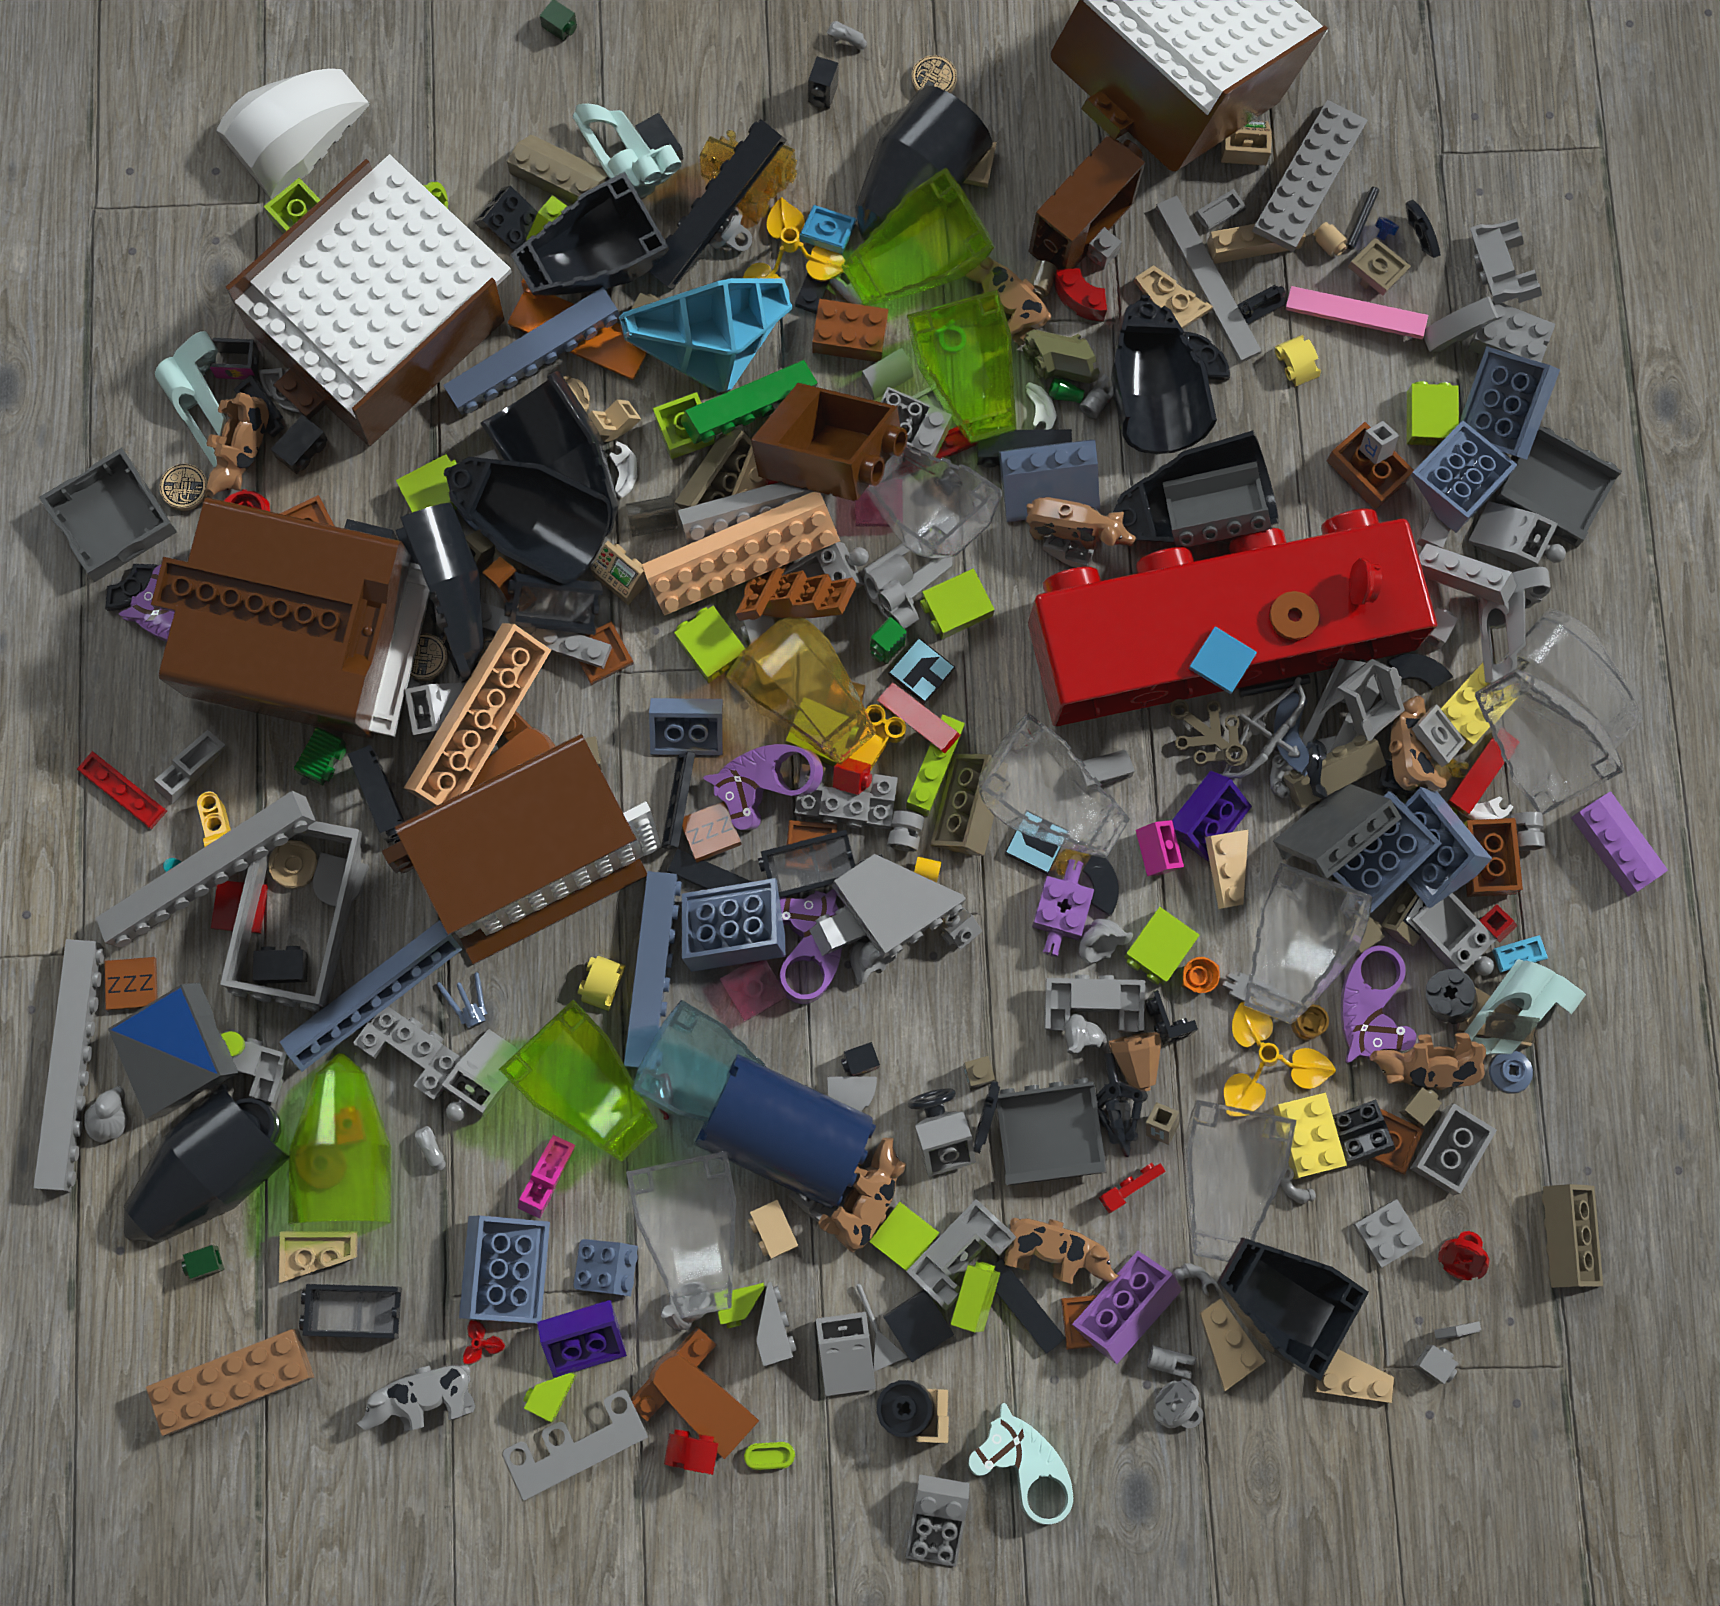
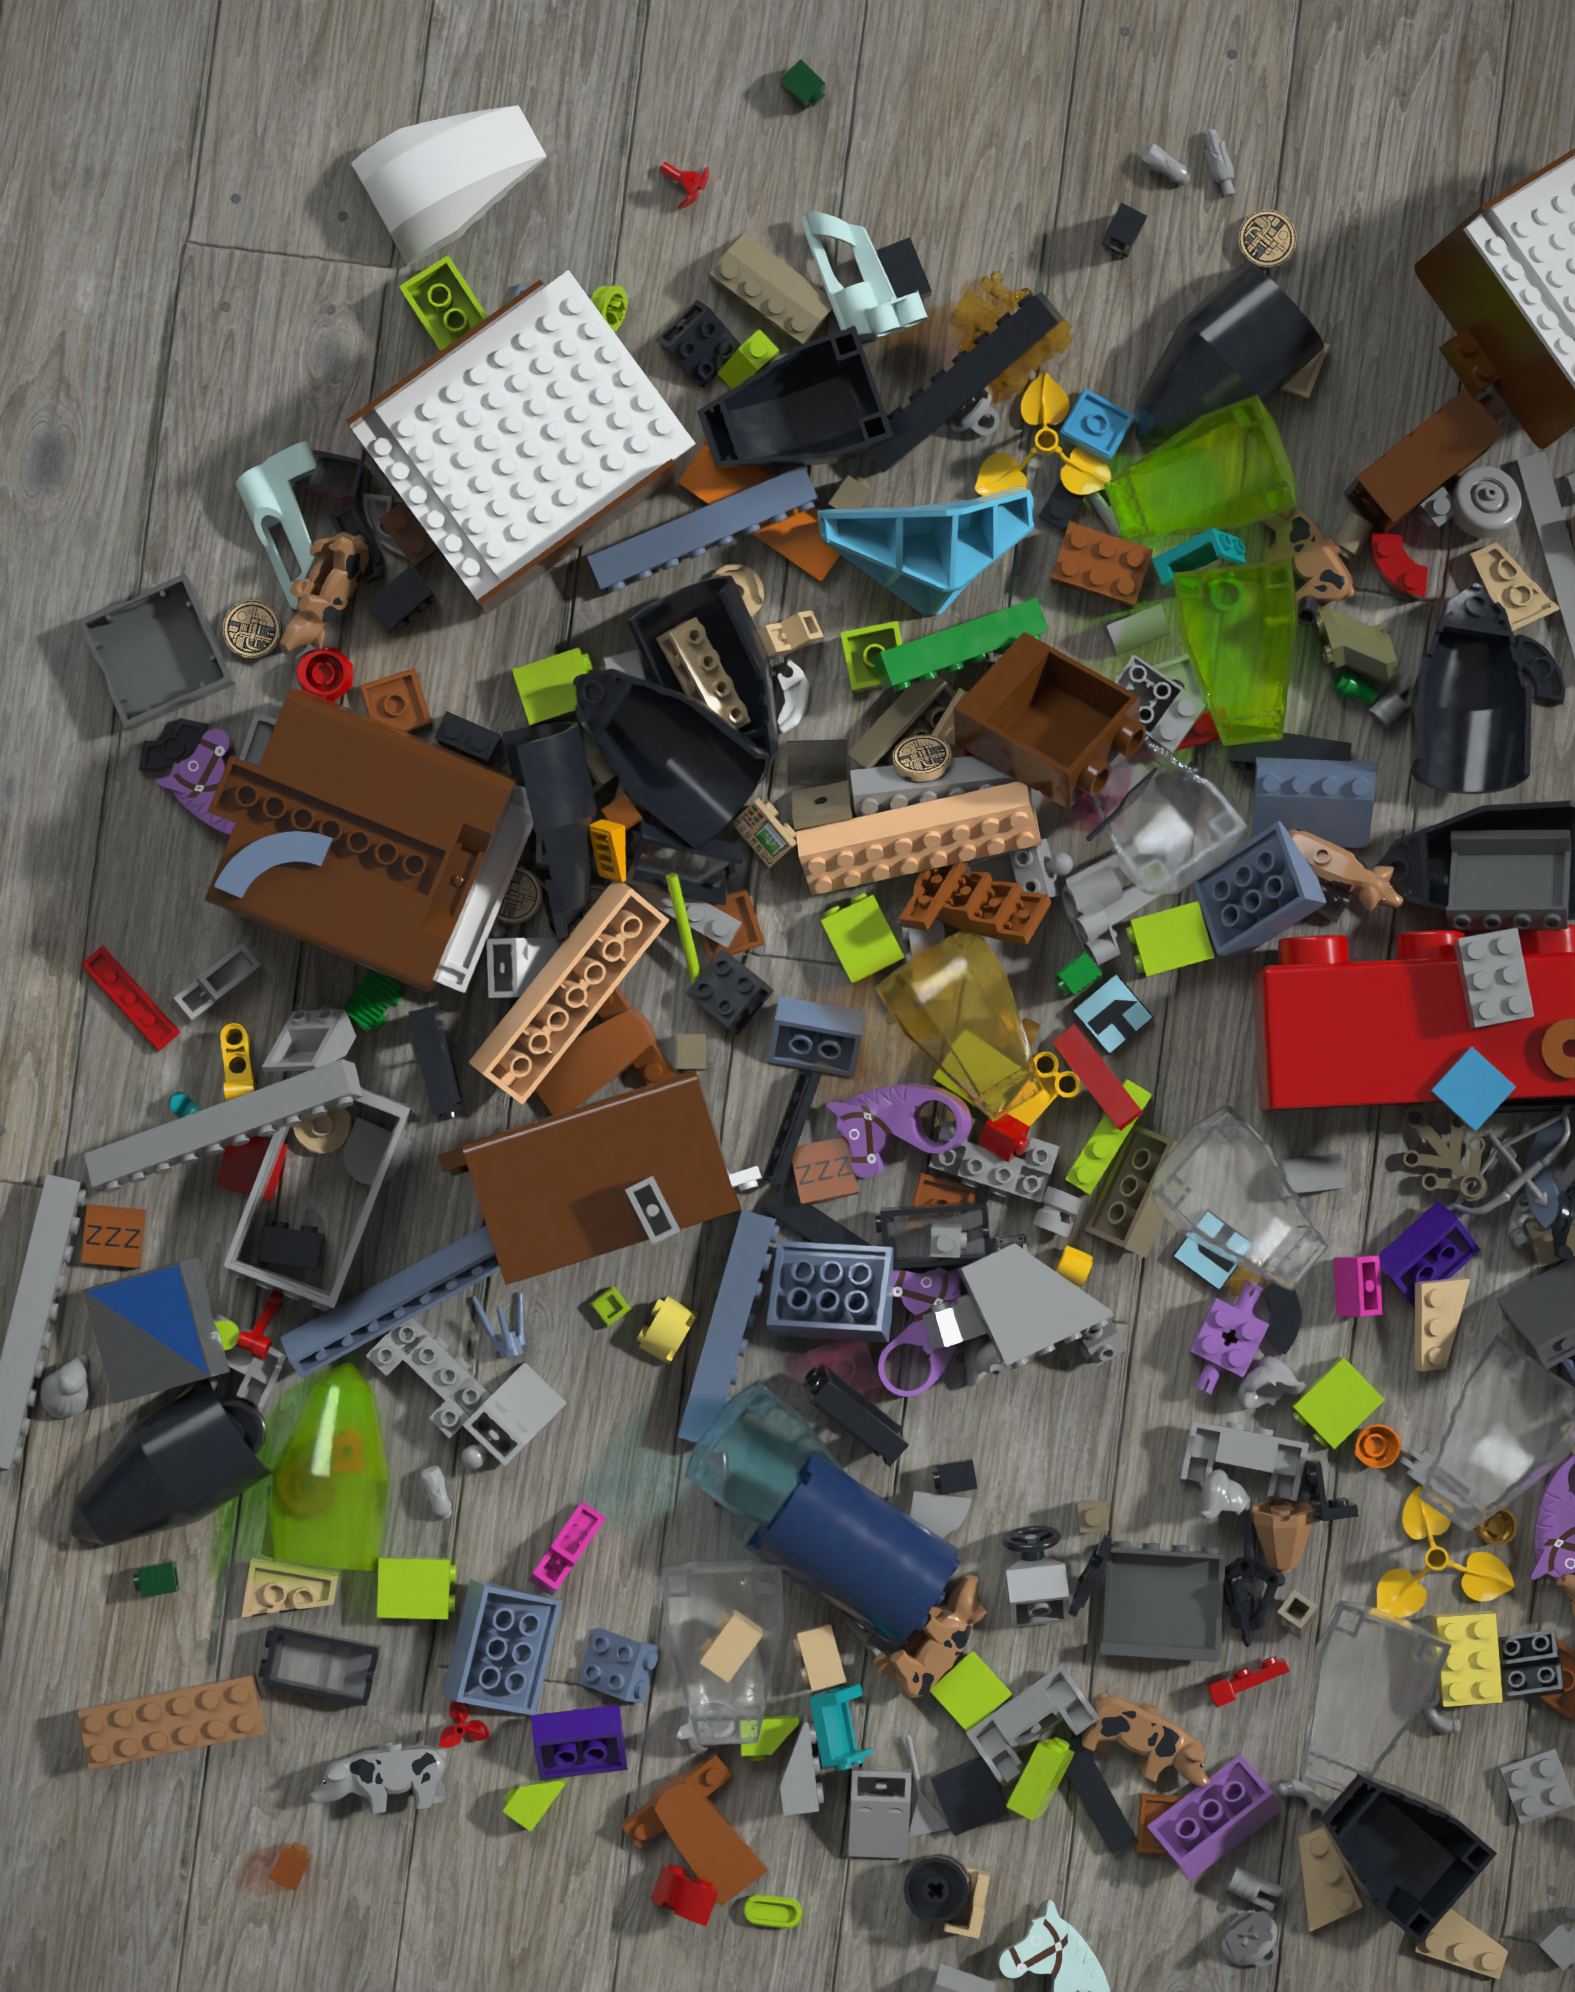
camera: 15 degrees right, 10 degrees up
(206, 626) = (269, 852): none -> sand blue tile
(258, 1045) = (255, 1341): none -> red brick
(270, 787) = (311, 1040): none -> light grey slope
(350, 1490) = (291, 1865): none -> clear orange brick
(423, 1231) = (415, 1587): none -> lime brick
(480, 99) = (689, 179): none -> red plant
(484, 588) = (611, 835): none -> light orange slope
(541, 447) = (701, 672): none -> tan brick
(553, 971) = (610, 1306): none -> lime tile
(562, 847) = (652, 1210): none -> light grey brick
(565, 657) = (683, 926): none -> lime bar
(575, 1457) = (549, 1874): light grey piece -> none
(582, 1083) = (625, 1453): clear neon green windscreen -> none
(611, 702) = (729, 991): none -> black bracket
(660, 543) = (821, 805): none -> dark tan tile
(695, 1230) = (730, 1645): none -> tan brick
(733, 490) = (922, 757): none -> tan tile
(767, 1019) = (854, 1413): none -> black door
(795, 1284) = (835, 1727): none -> teal panel
(819, 865) = (947, 1240): none -> light grey brick
(887, 28) = (1219, 162): none -> light grey piece
(905, 493) = (1127, 801): none -> black piece
(925, 296) = (1198, 553): none -> teal panel
(1018, 326) = (1307, 603): none -> black hinge
(1019, 551) = (1258, 893): none -> sand blue slope
(1044, 407) = (1325, 702): white piece -> none
(1139, 236) = (1485, 501): none -> light grey wheel
(1221, 569) = (1493, 978): none -> light grey brick

